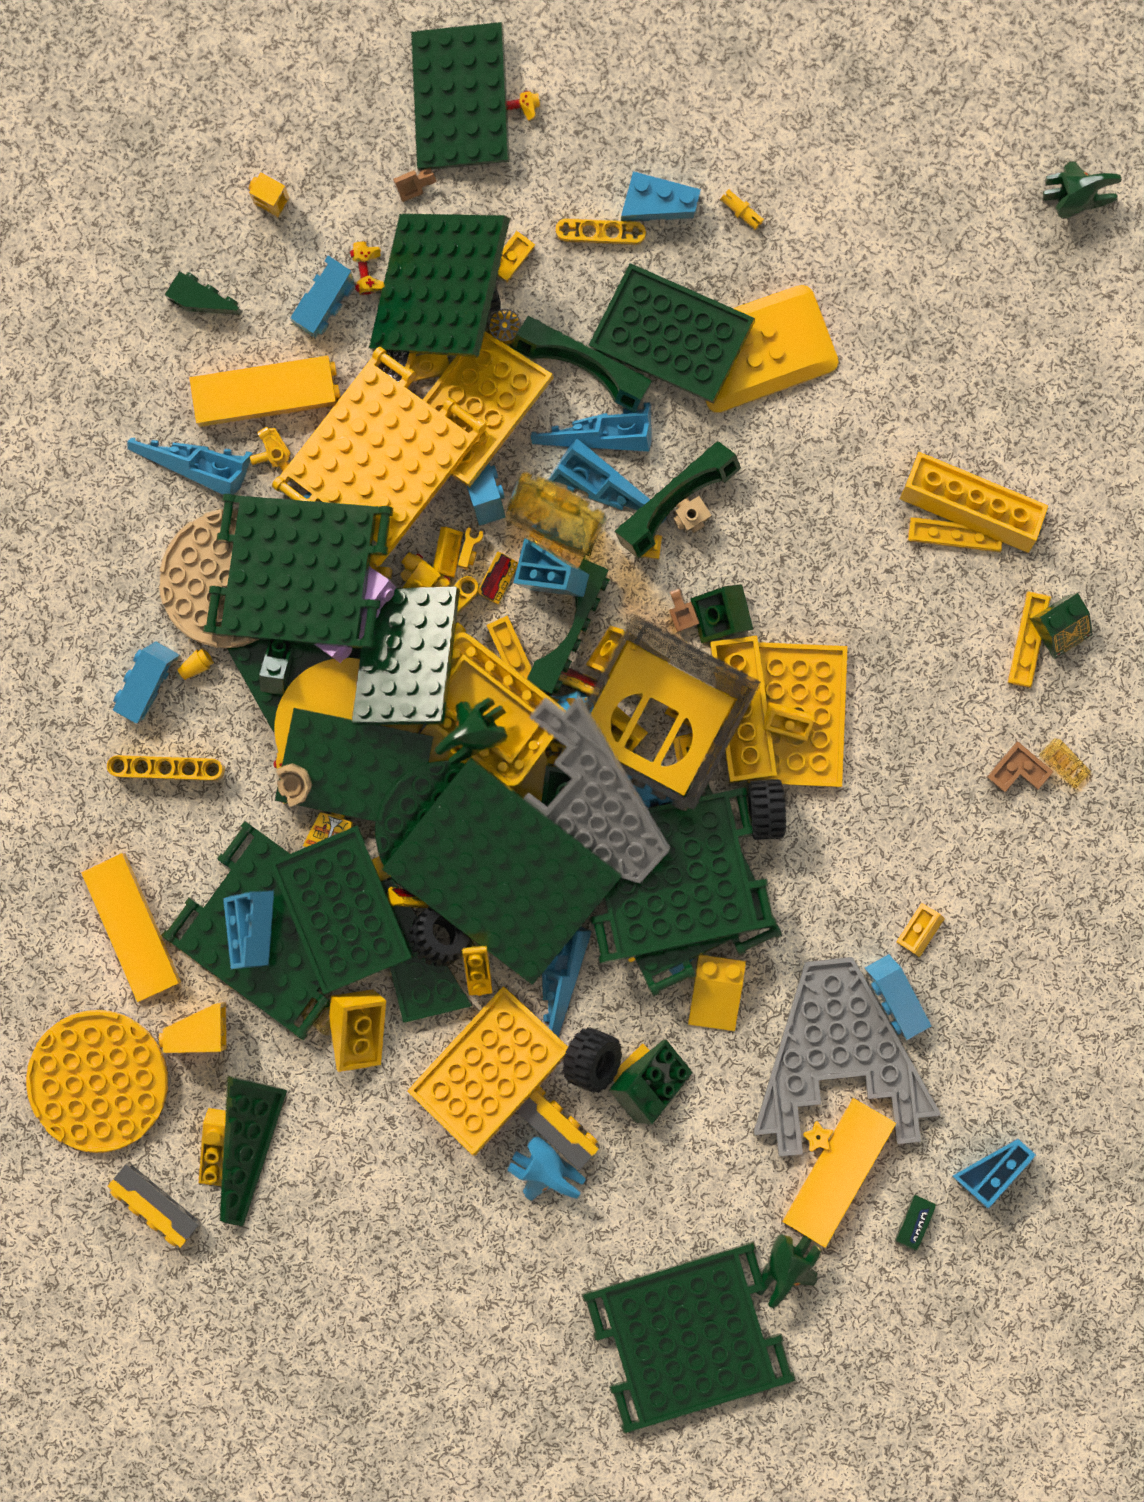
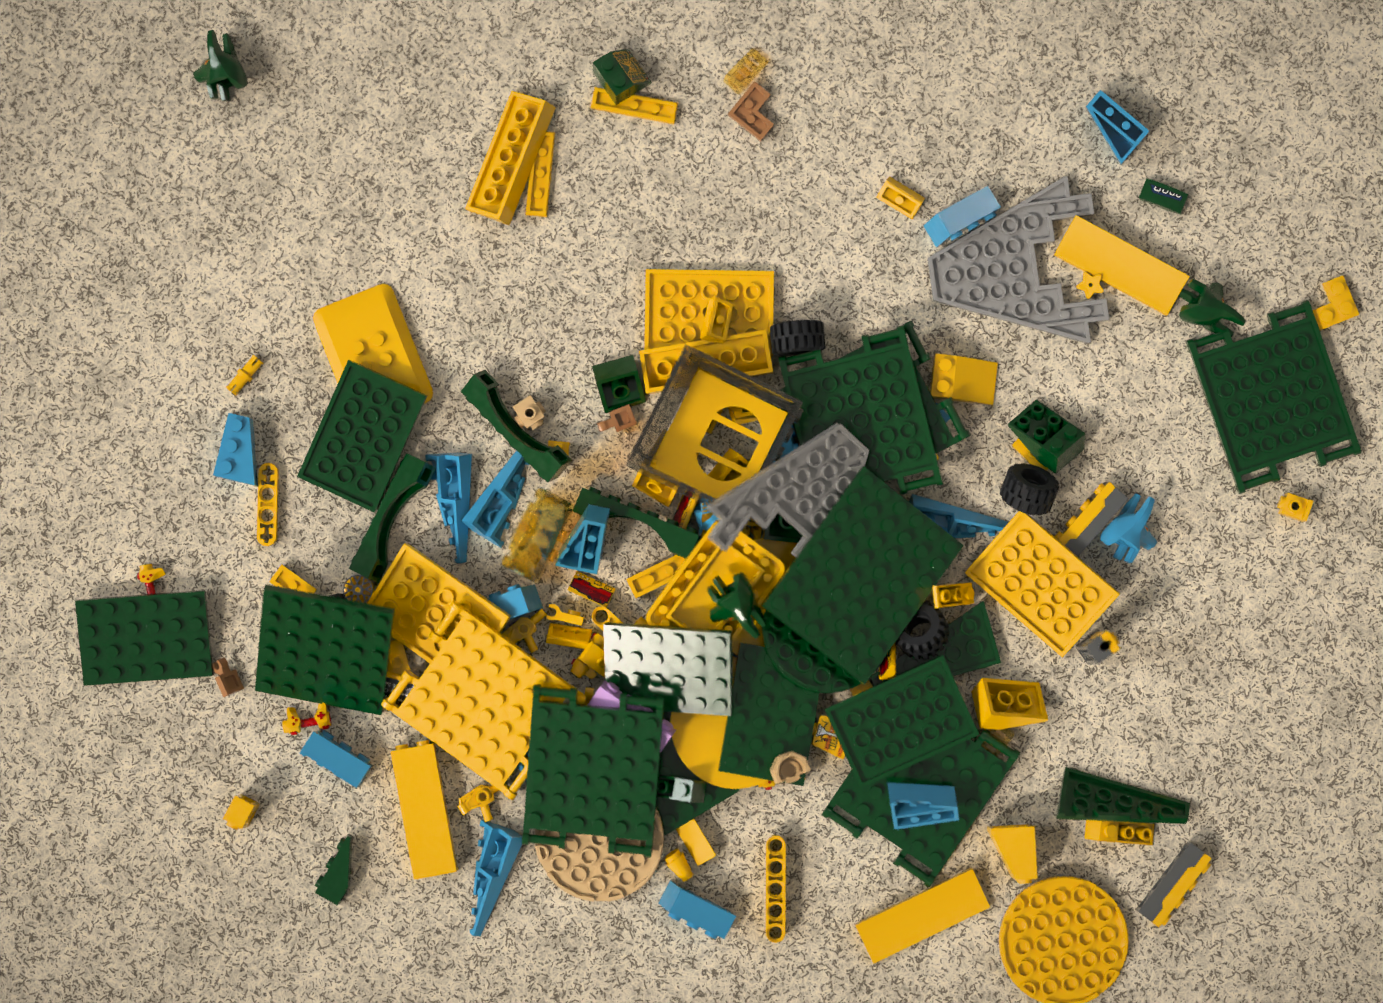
camera: 85 degrees left, 0 degrees up
(219, 684) = (696, 842): none -> yellow slope
(417, 1120) = (1094, 652): none -> dark grey piece
(456, 503) = (523, 629): none -> yellow piece
(565, 1345) = (1301, 513): none -> yellow brick
(789, 1417) = (1341, 304): none -> yellow plate

